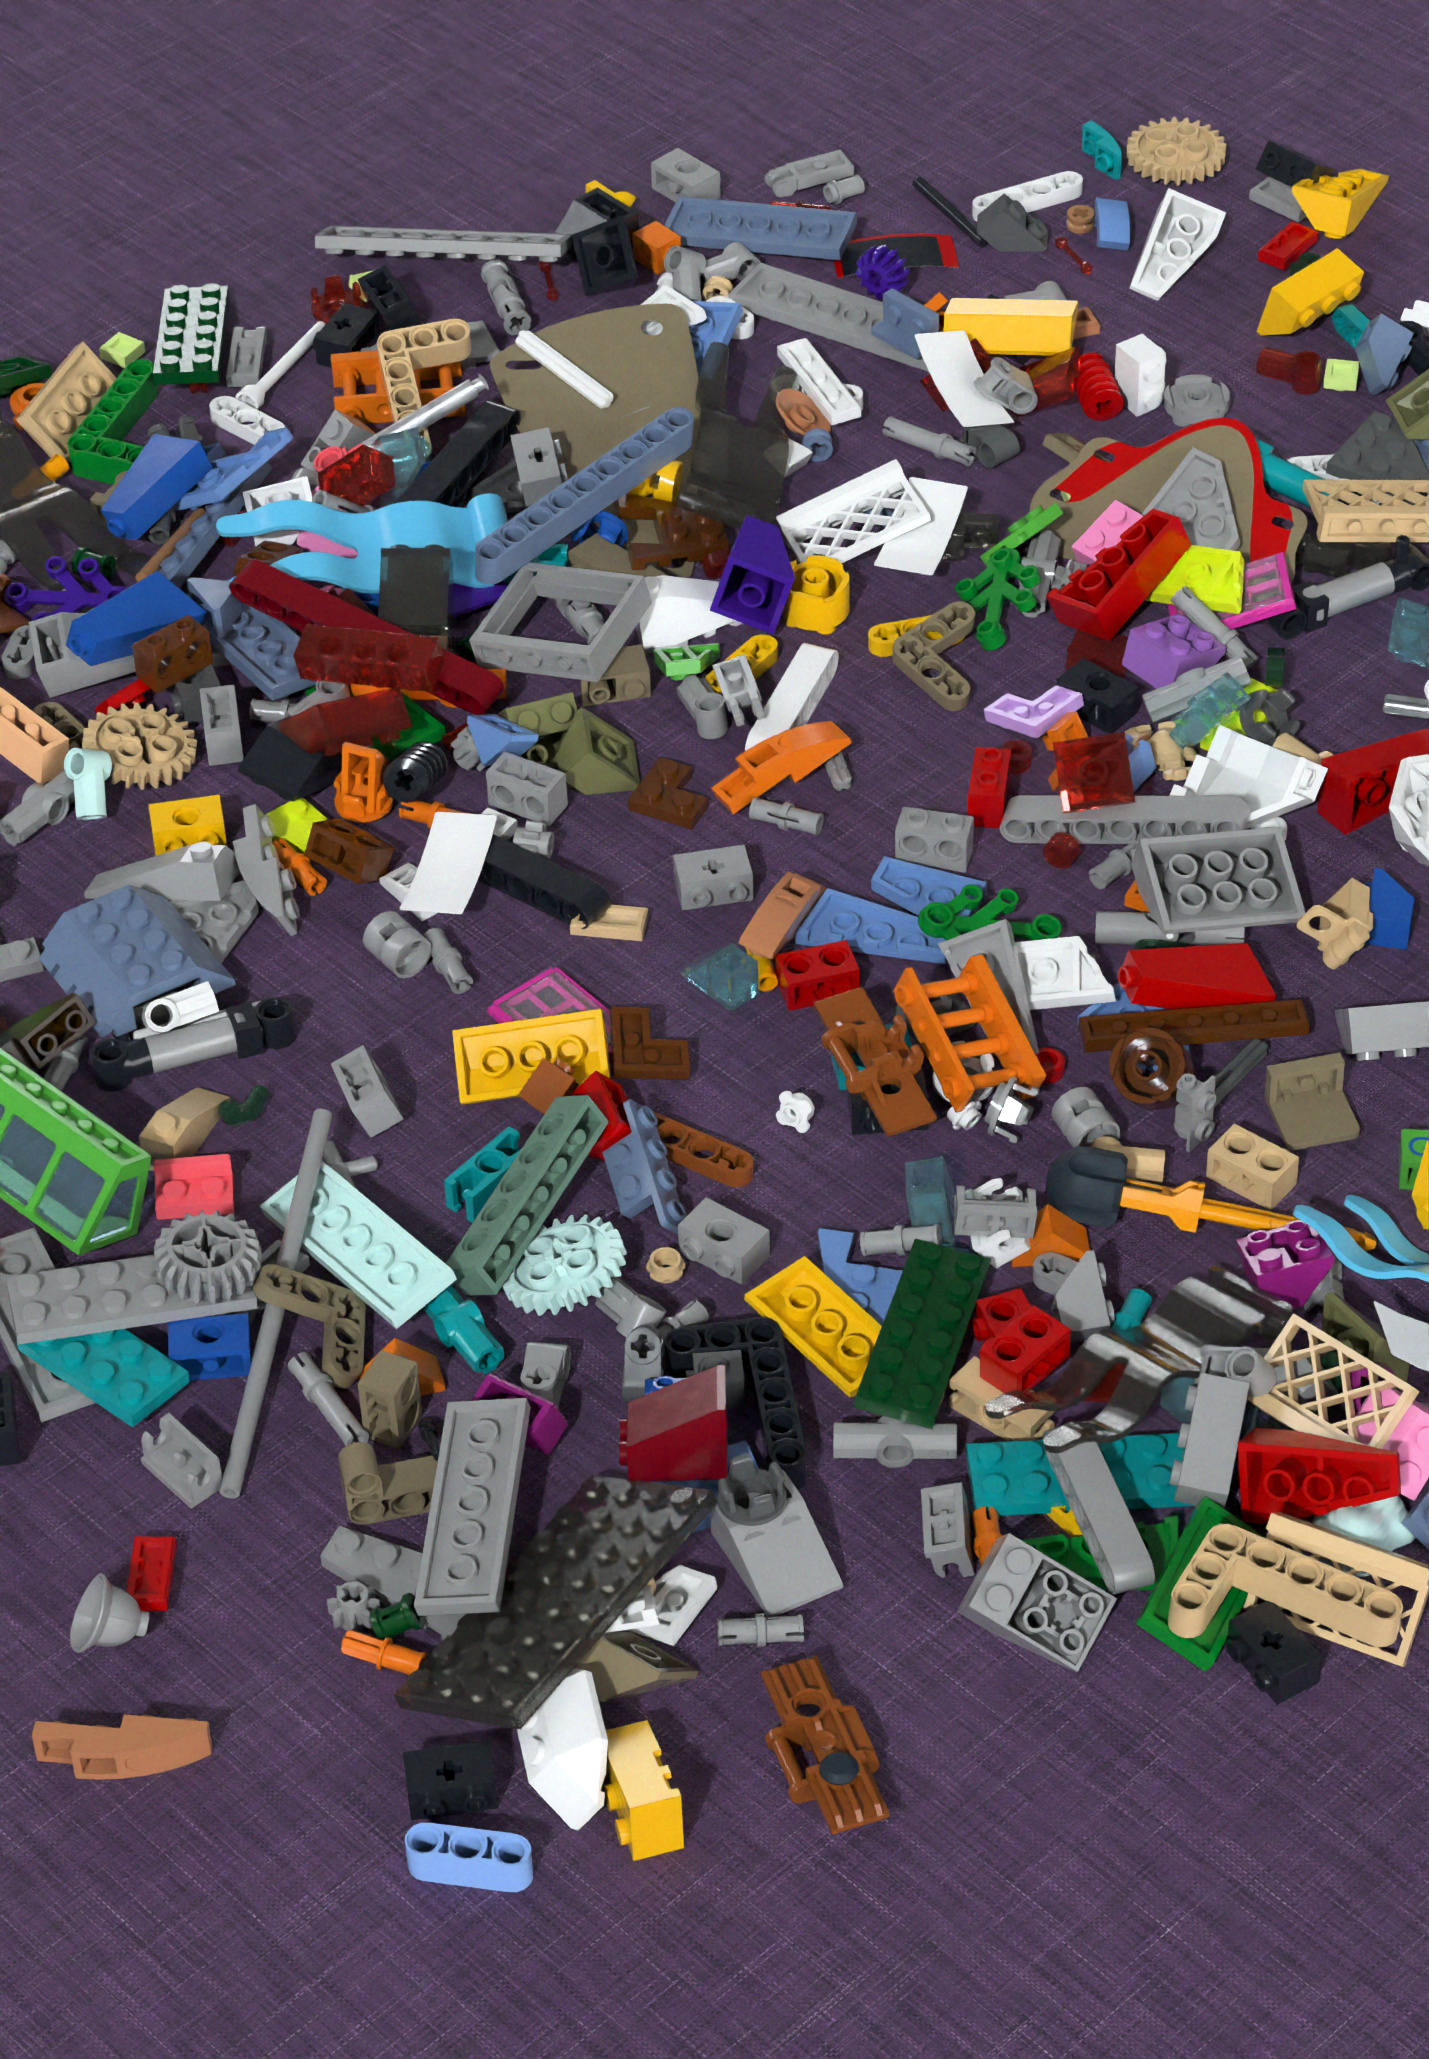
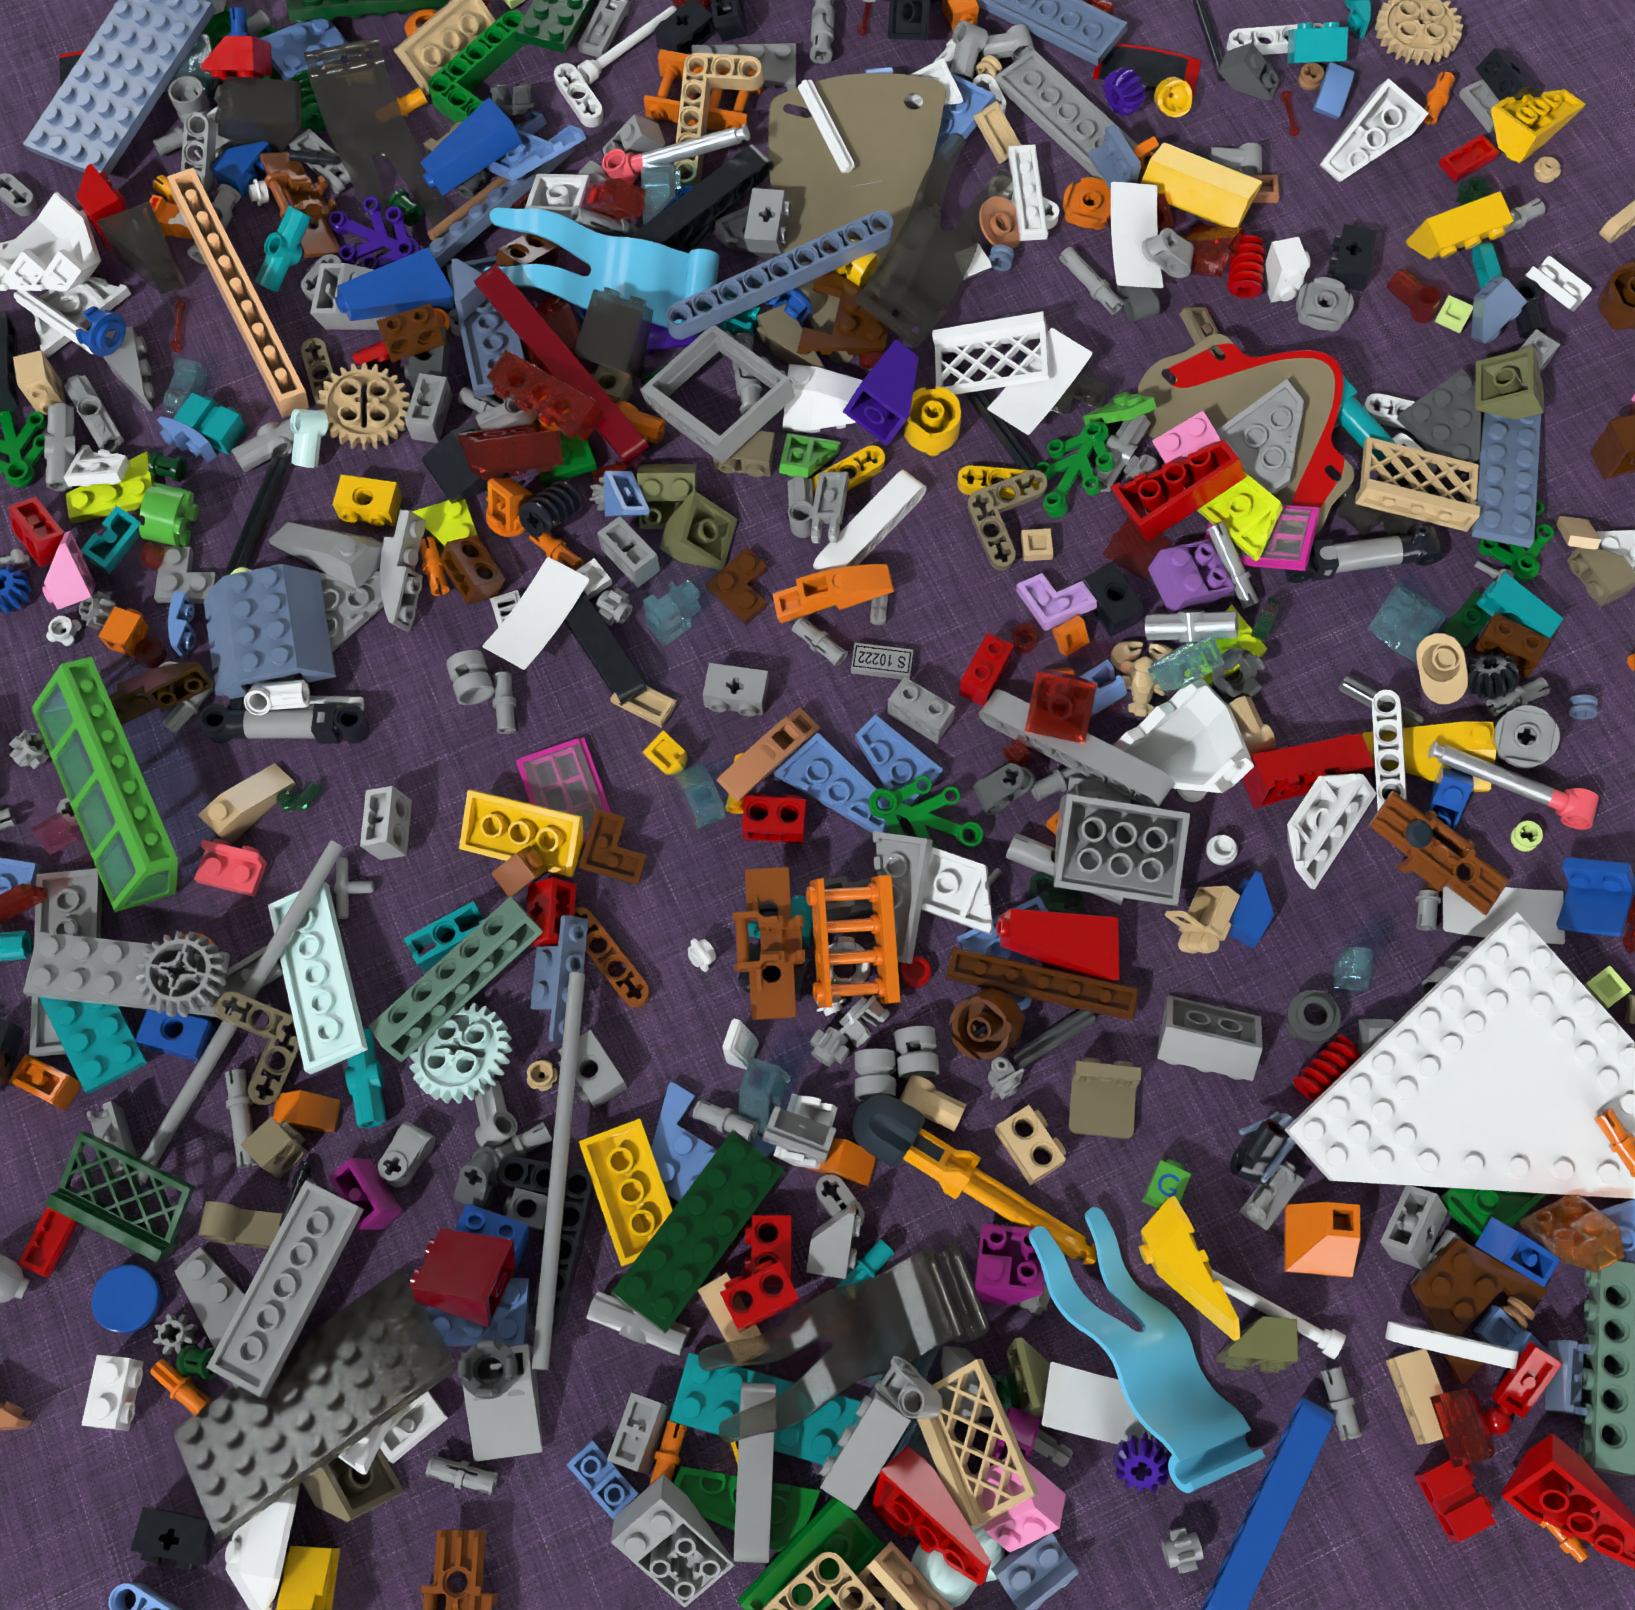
camera: 20 degrees right, 25 degrees up
(18, 988) = (180, 632): none -> medium blue slope
(56, 871) = (257, 514): none -> black axle
(68, 1440) = (45, 1082): none -> orange slope
(228, 1529) = (117, 1223): none -> dark green fence
(275, 1597) = (126, 1299): none -> blue tile
(306, 1676) = (113, 1393): none -> white brick
(604, 826) = (673, 612): none -> clear light blue hips
(663, 954) = (666, 754): none -> yellow plate
(737, 1322) = (558, 1173): none -> light grey piece
(755, 338) = (996, 130): none -> tan tile
(864, 816) = (881, 661): none -> light grey tile
(881, 387) = (1081, 214): none -> orange plate
(883, 1170) = (739, 1045): none -> white slope
(891, 587) = (999, 426): none -> black axle
(921, 1590) = (602, 1478): none -> medium blue slope
(939, 265) = (1173, 97): none -> yellow piece
(985, 1145) = (829, 1046): none -> light grey gear
(988, 673) = (1036, 544): none -> tan plate
(1041, 1144) = (875, 1073): none -> light grey wheel
(1061, 879) = (999, 790): none -> dark grey piece
(1074, 185) = (1317, 44): none -> teal brick
(1207, 351) = (1353, 256): none -> black brick
(1228, 203) = (1438, 97): none -> orange pin
(1328, 871) = (1221, 849): none -> white plate
(1372, 278) = (1523, 214): none -> light grey pin
(1376, 236) = (1547, 169): none -> tan plate

